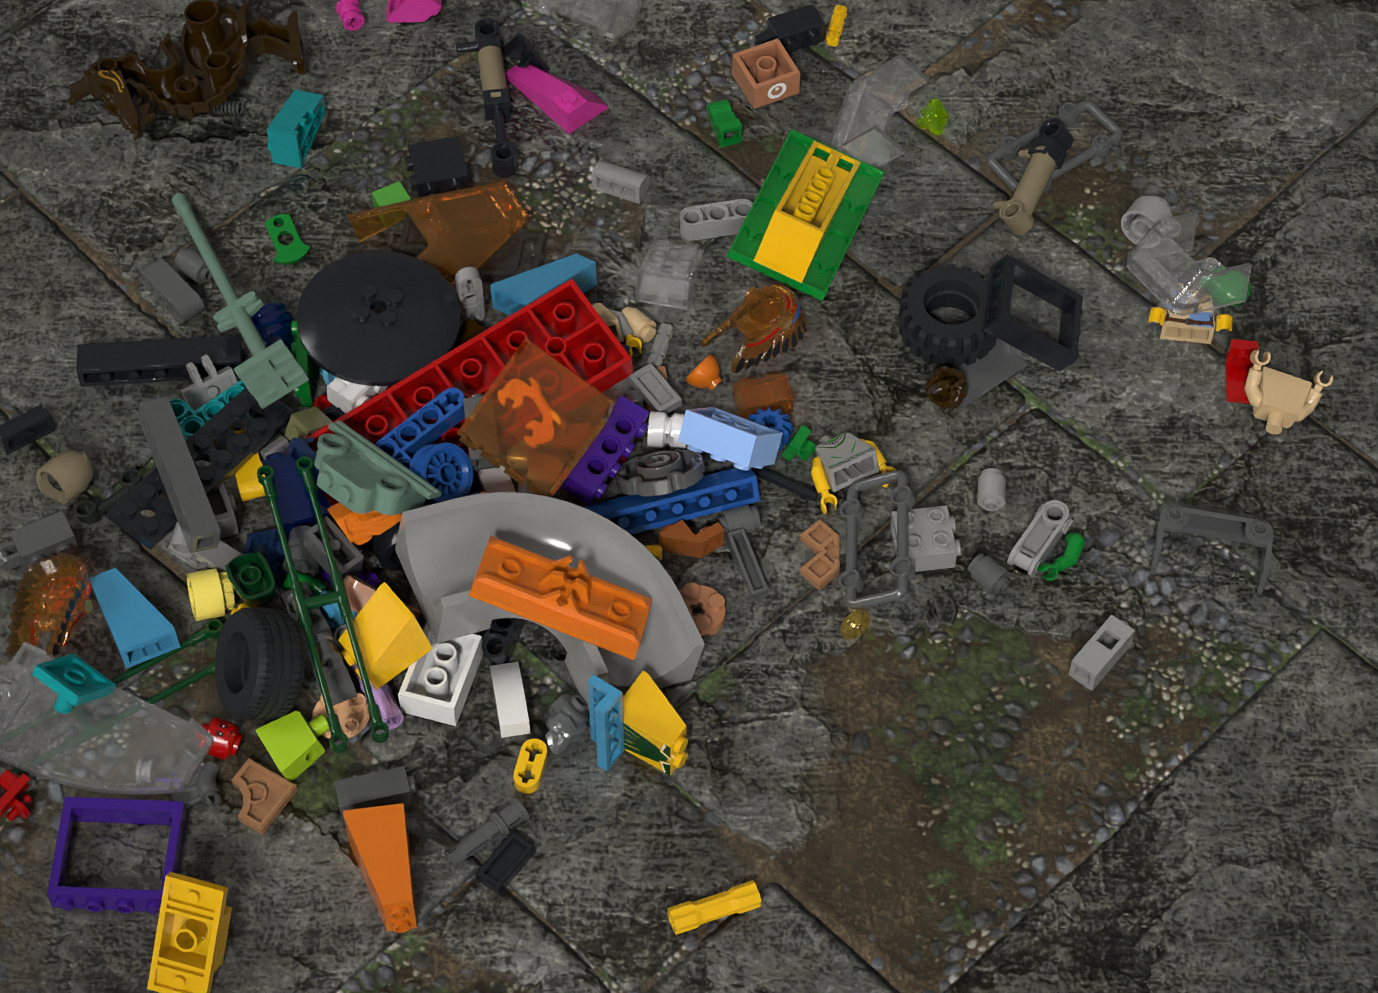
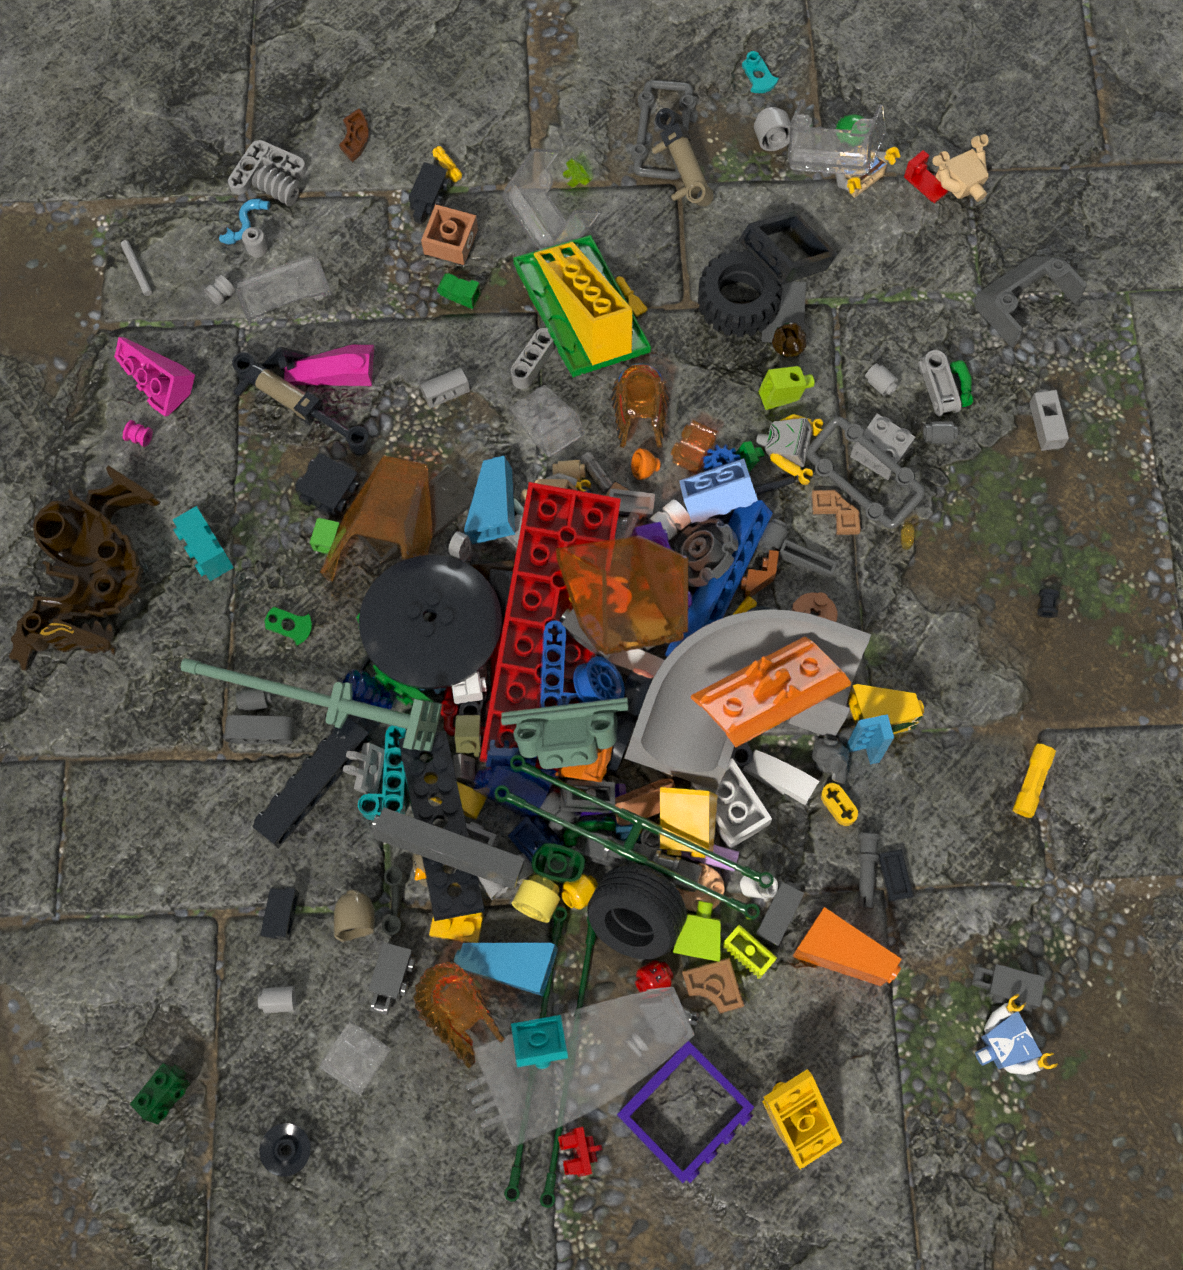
camera: 45 degrees left, 15 degrees up
(133, 559) = (461, 929): none -> yellow bracket
(313, 791) = (749, 951): none -> neon yellow brick
(385, 754) = (752, 889): none -> white brick
(857, 253) = (634, 301): none -> yellow piece
(896, 417) = (784, 386): none -> lime torso
(909, 789) = (1048, 603): none -> black bush
(1204, 163) = (755, 63): none -> teal piece

